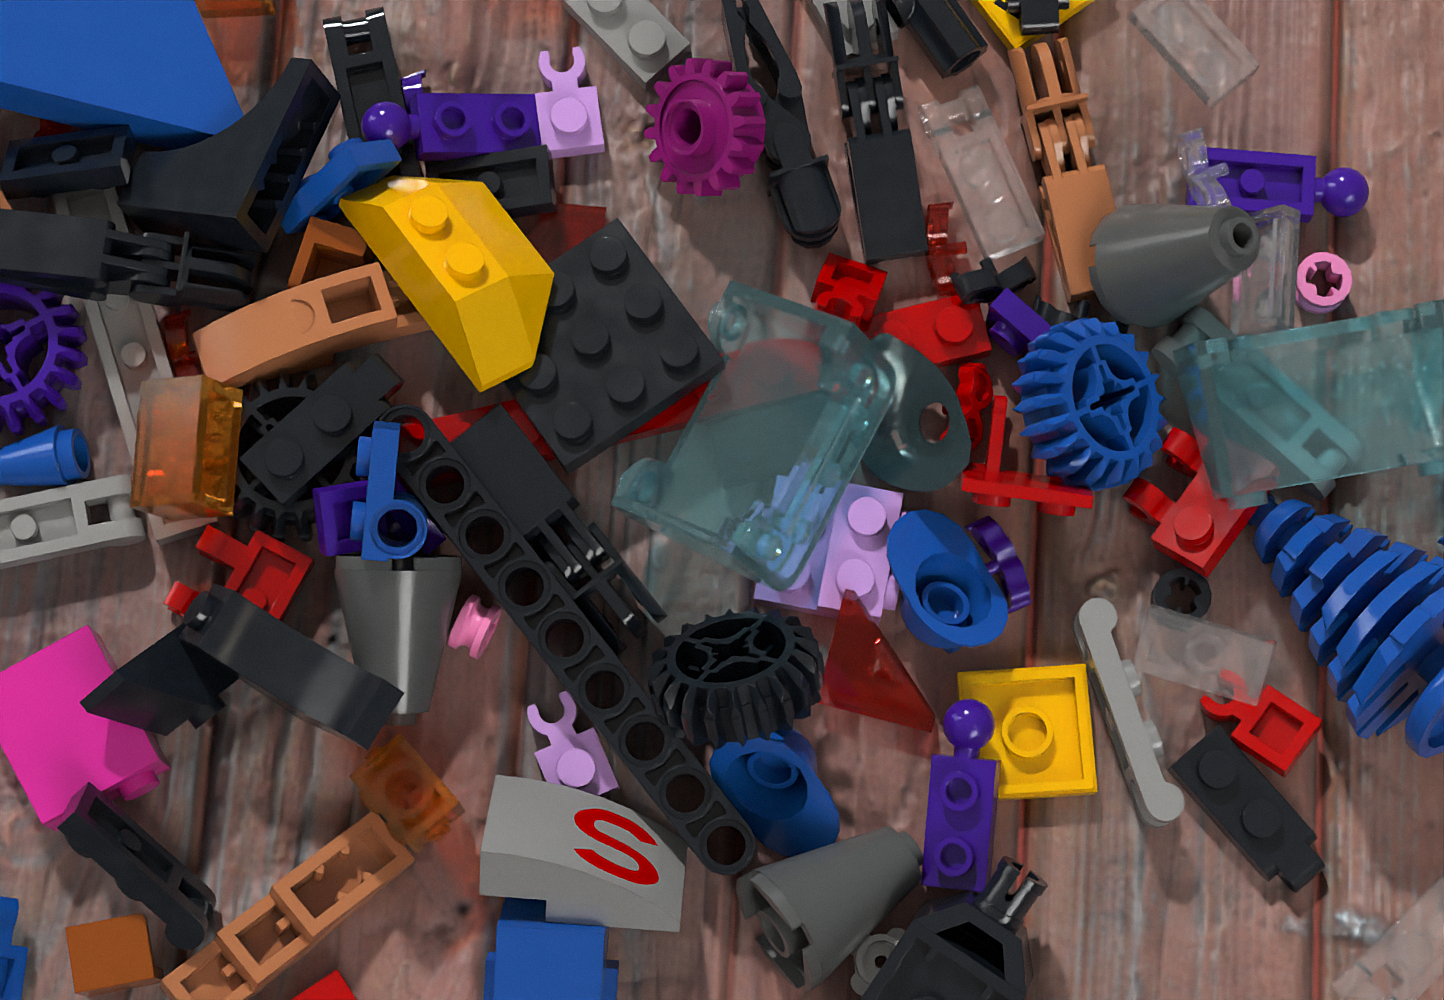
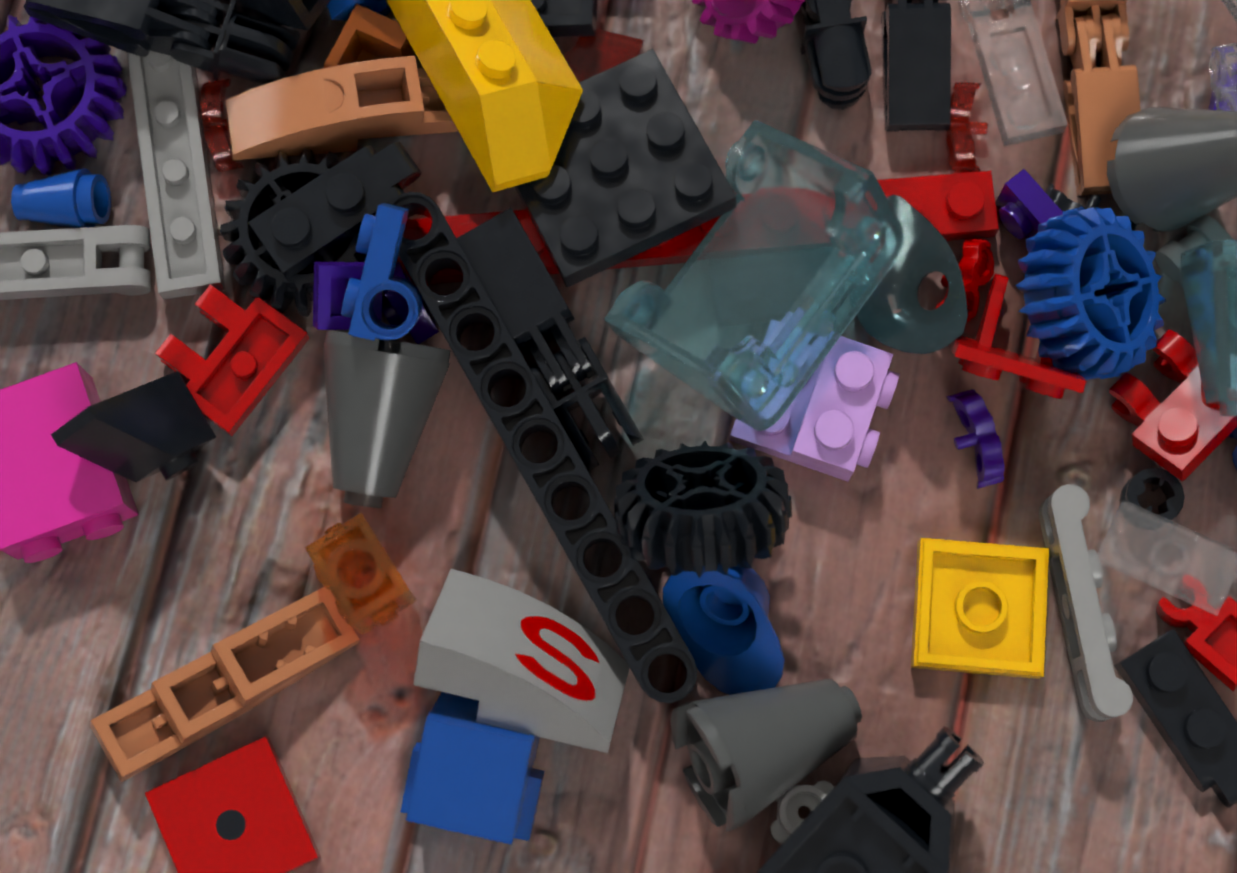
camera: 10 degrees right, 0 degrees up
(112, 955) = (46, 689): dark orange panel -> none
(139, 865) = (86, 604): black plate -> none
(186, 448) = (199, 205): clear orange brick -> none
(289, 666) = (262, 430): black arch -> none
(474, 626) = (453, 422): bright pink bush -> none
(572, 758) = (530, 564): lavender plate -> none
(848, 289) = (869, 147): red plate -> none
(867, 674) = (832, 526): clear red tile -> none
(944, 583) = (921, 448): blue piece -> none
(962, 803) = (908, 667): dark purple plate -> none
(986, 283) = (1001, 164): black piece -> none

